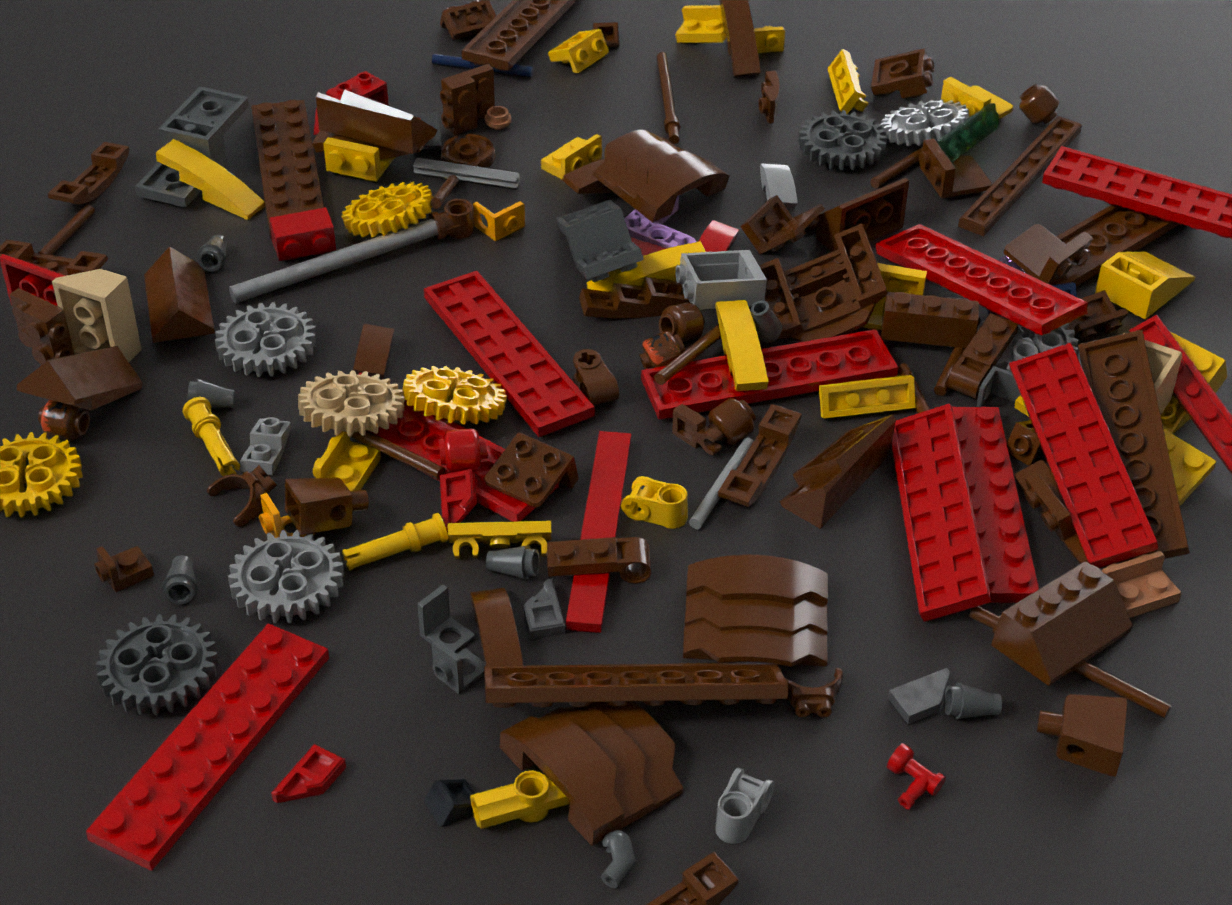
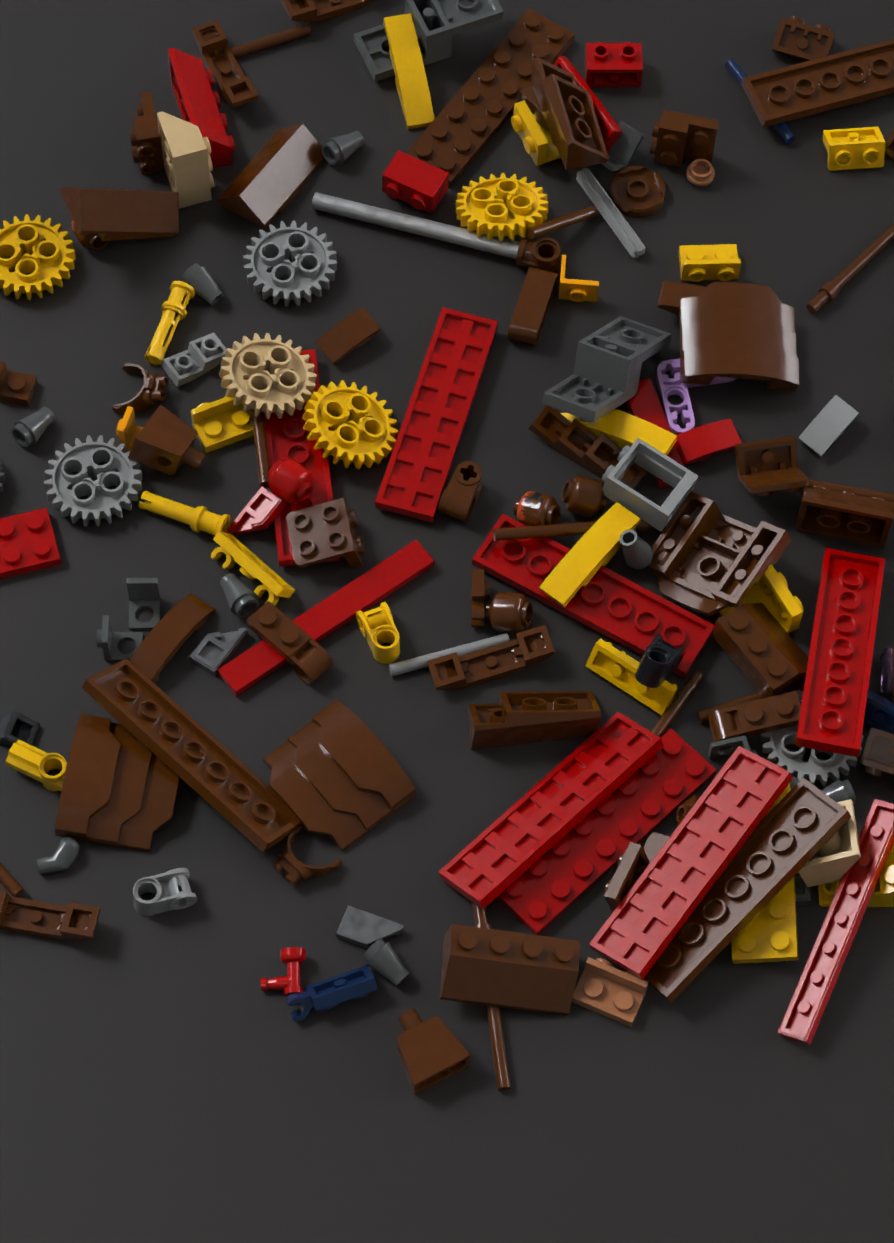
camera: 45 degrees right, 20 degrees up
(488, 249) = (532, 306): none -> reddish brown beam
(880, 363) = (658, 662): none -> black piece
(966, 754) = (332, 991): none -> dark blue plate

